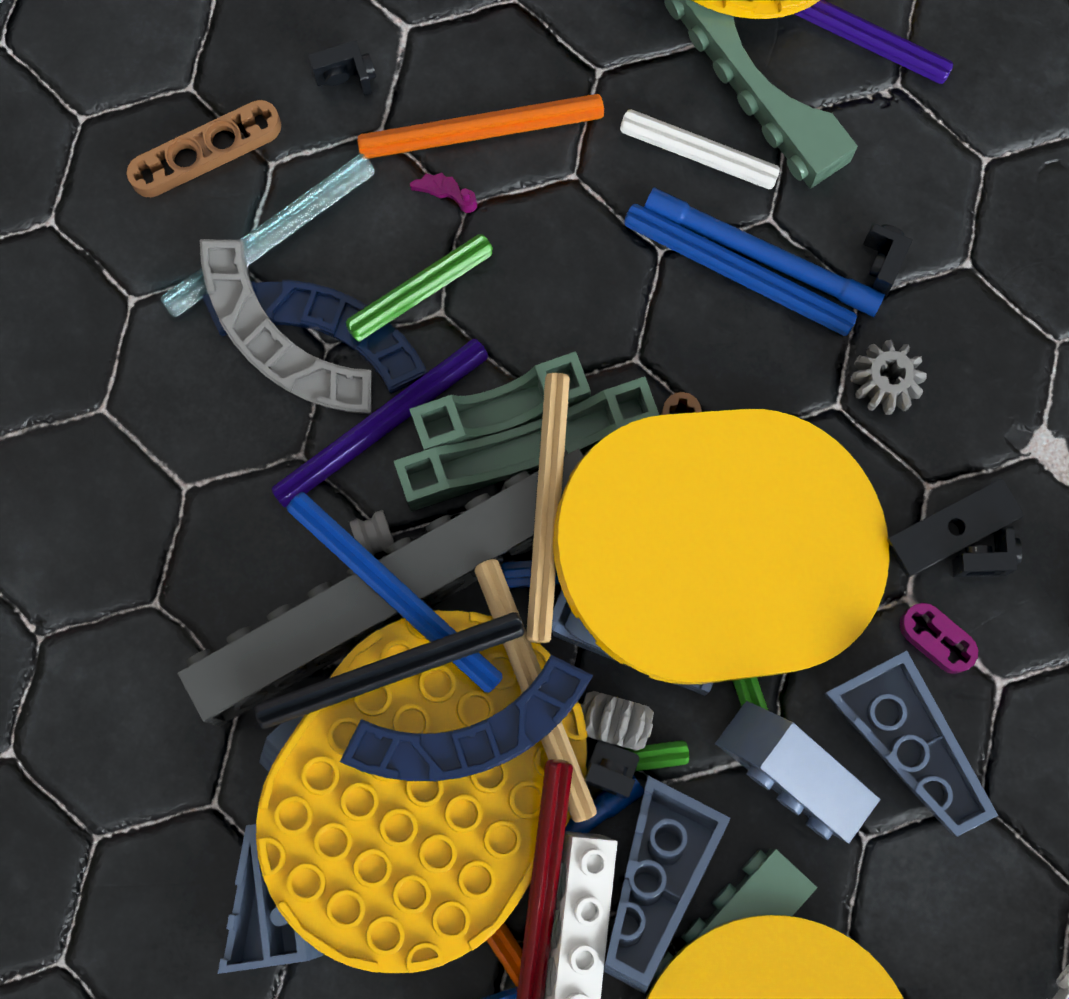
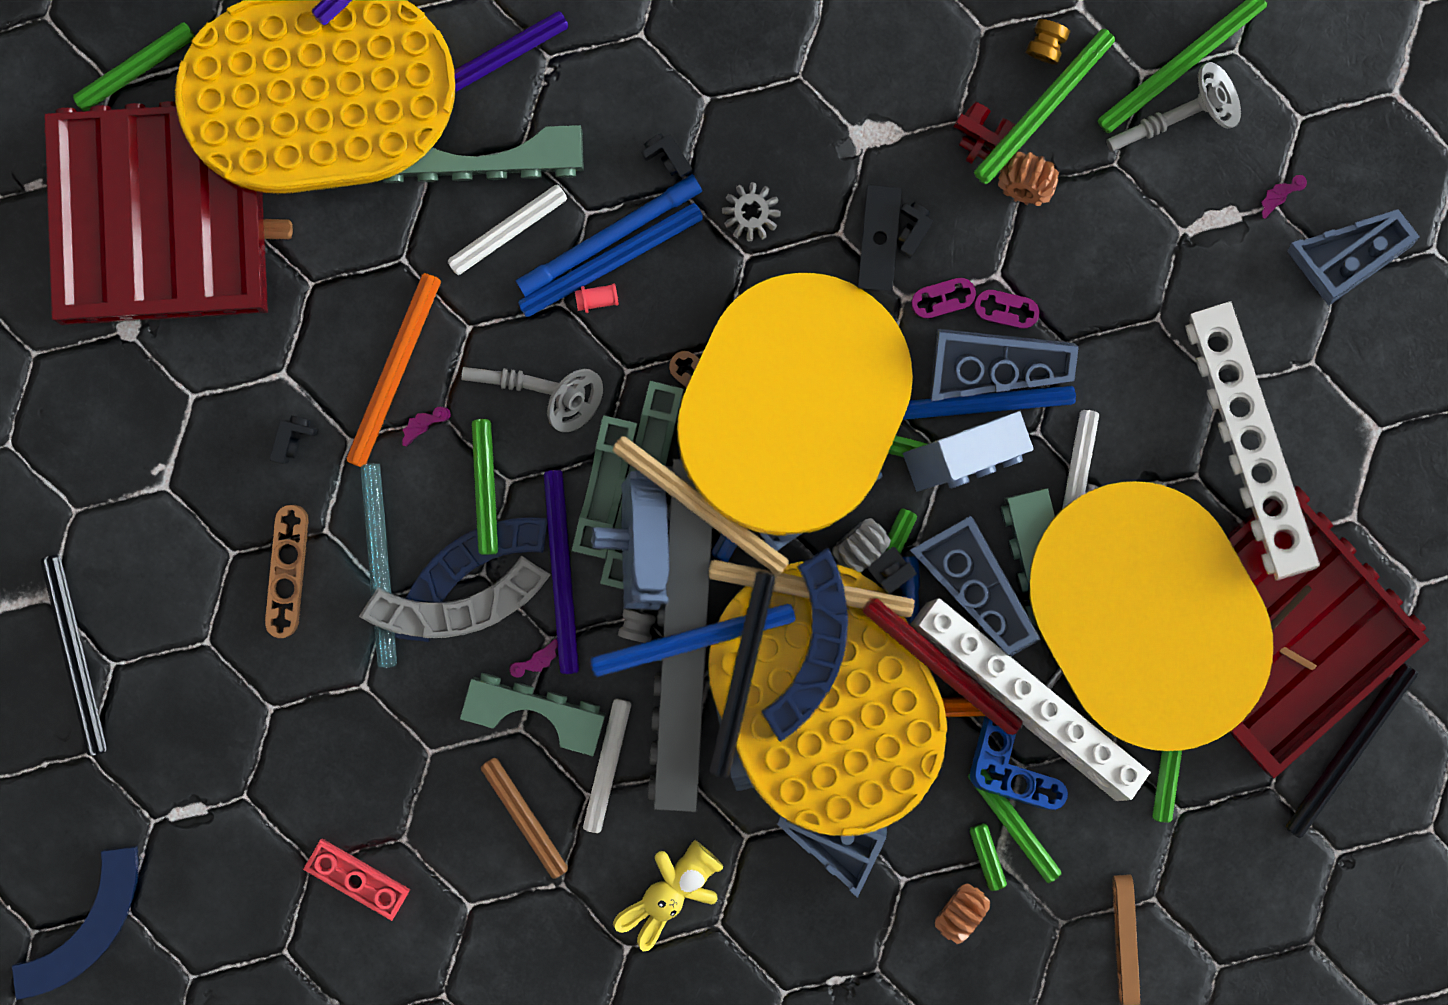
camera: 55 degrees left, 10 degrees up
(88, 550) = (524, 818): none -> medium nougat axle
(90, 758) = (667, 897): none -> light yellow animal
(199, 602) = (607, 766): none -> white axle
(222, 539) = (491, 701): none -> sand green arch
(267, 458) = (538, 660): none -> magenta piece
(466, 473) = (641, 541): none -> sand blue piece
(570, 304) = (563, 392): none -> light grey dish
(691, 278) = (596, 297): none -> coral pin
(863, 762) = (991, 402): none -> blue axle
(877, 903) = (1081, 455): none -> white axle
(984, 710) = (1003, 317): none -> magenta beam

